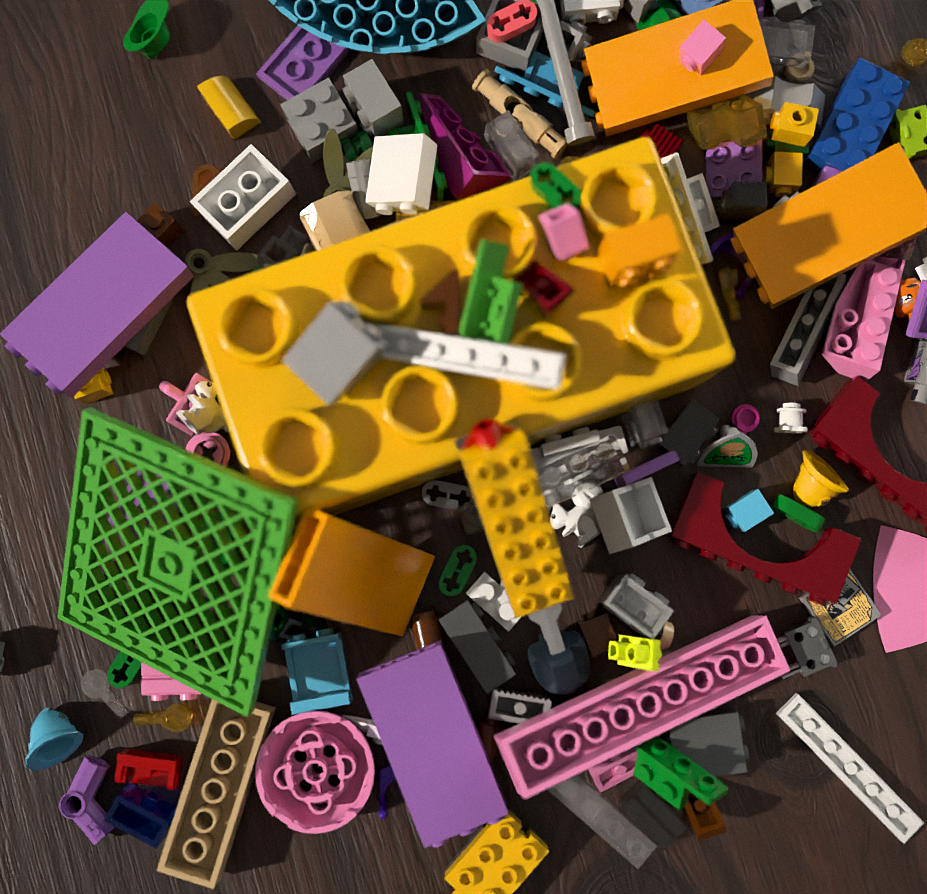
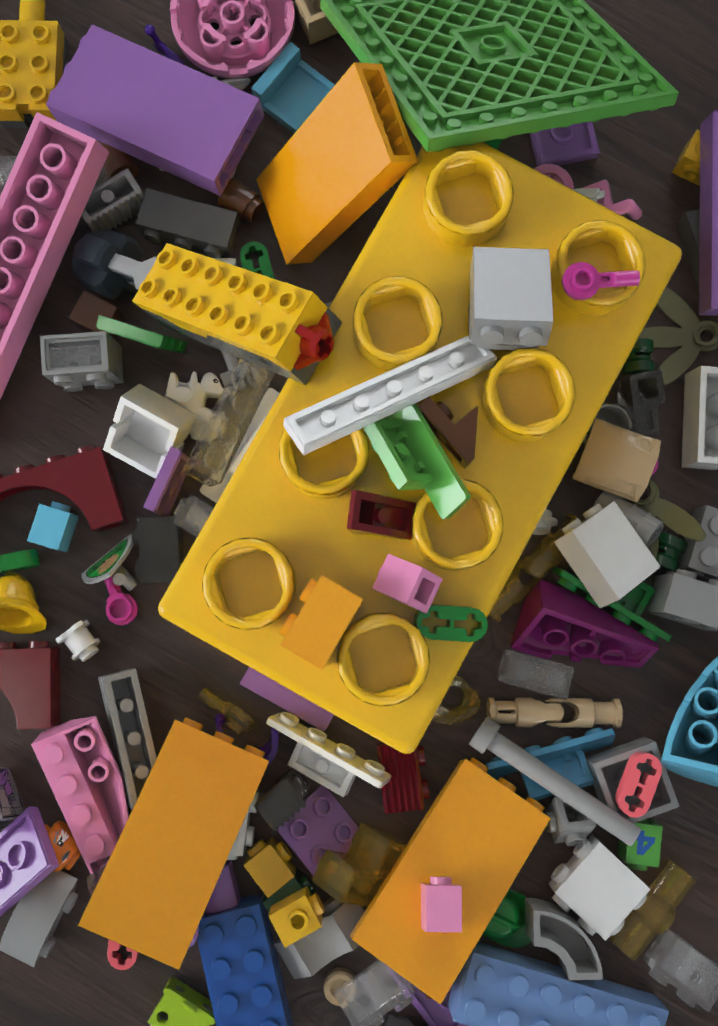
camera: 135 degrees right, 0 degrees up
(280, 319) = (583, 280): none -> dark pink plate
(586, 588) = (141, 334): none -> green tile
(636, 652) = (46, 317): neon yellow hips -> none
(665, 635) = (34, 360): tan tile -> none

